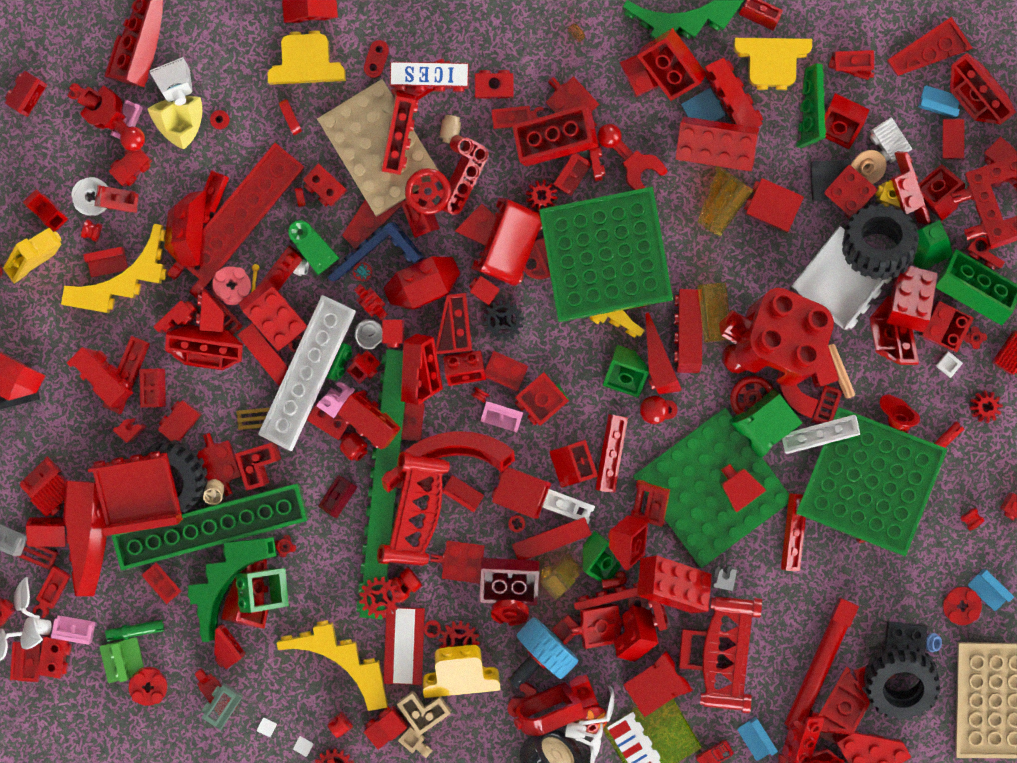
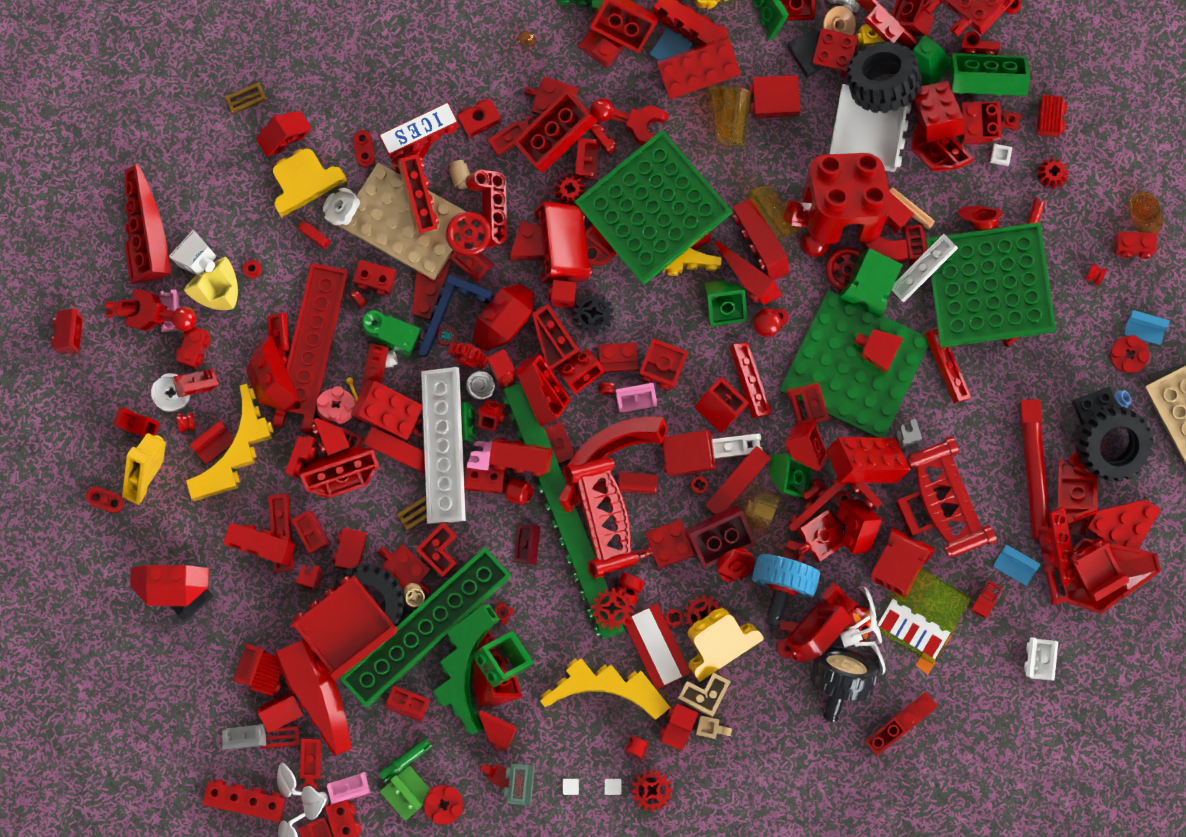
camera: 25 degrees left, 10 degrees down
(327, 113) = (349, 204): none -> white plate

